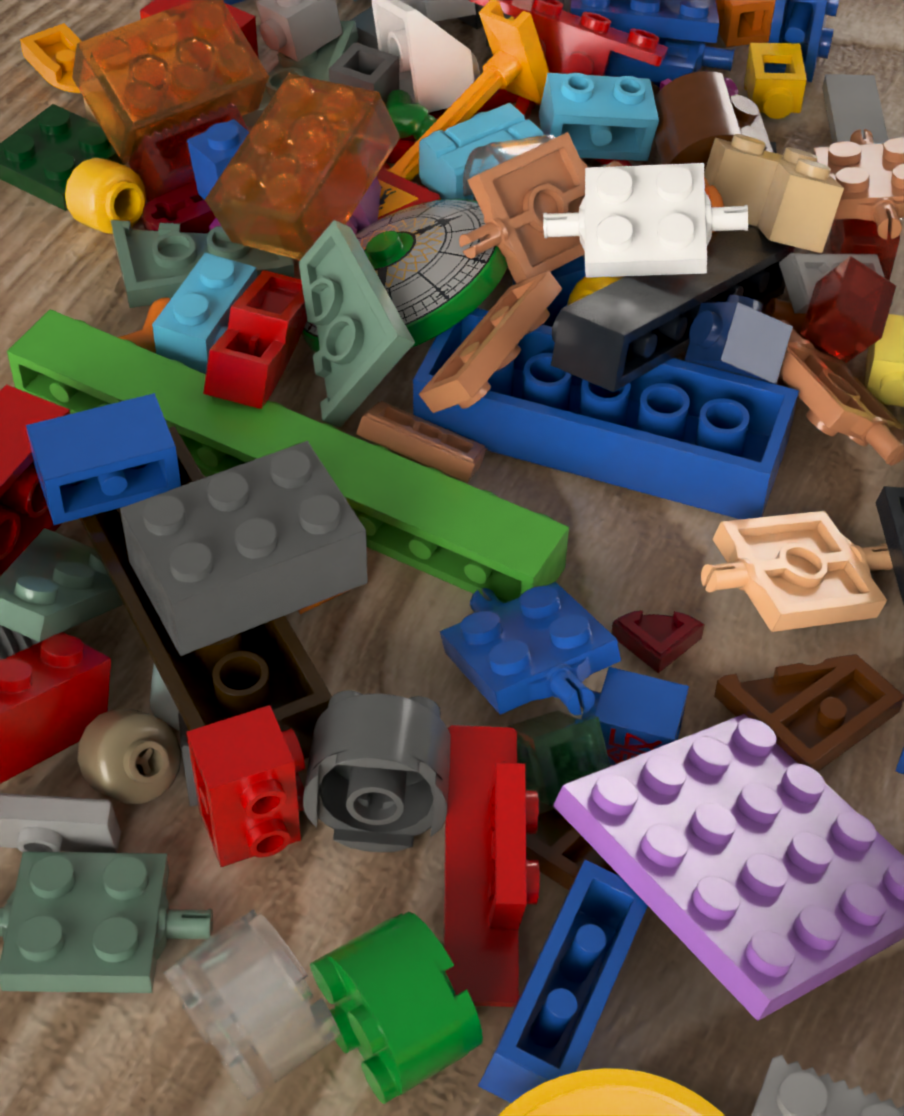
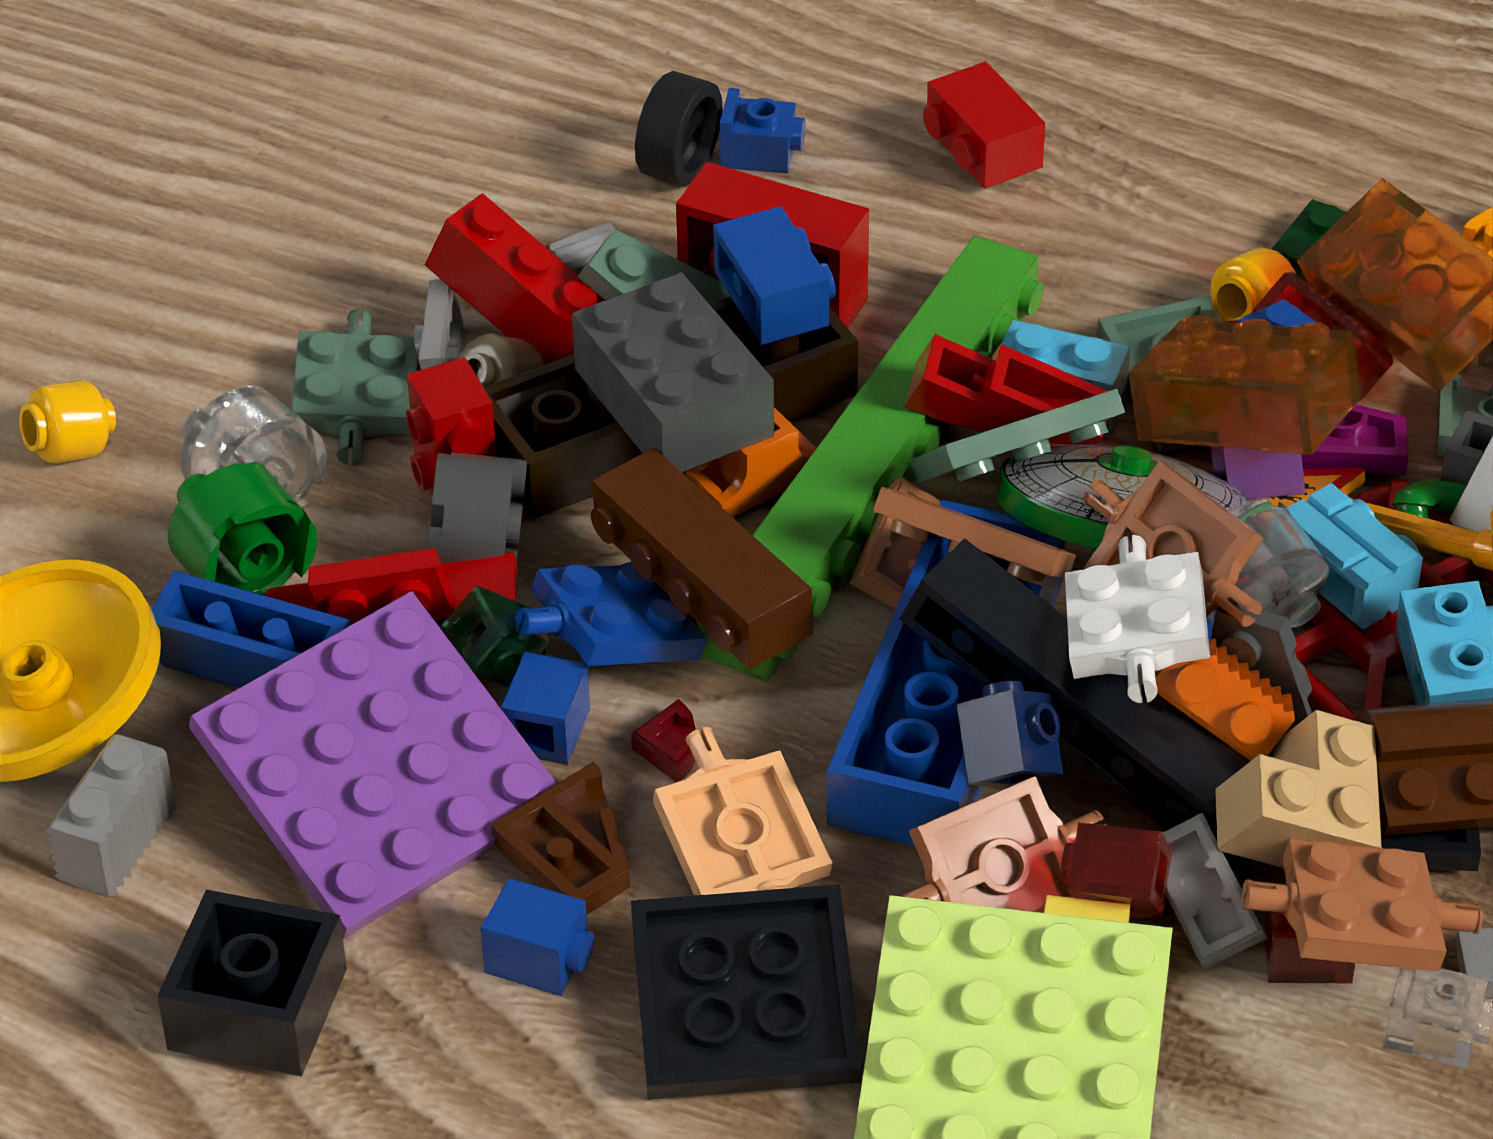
camera: 90 degrees right, 5 degrees down
(489, 553) = (702, 558): none -> reddish brown brick

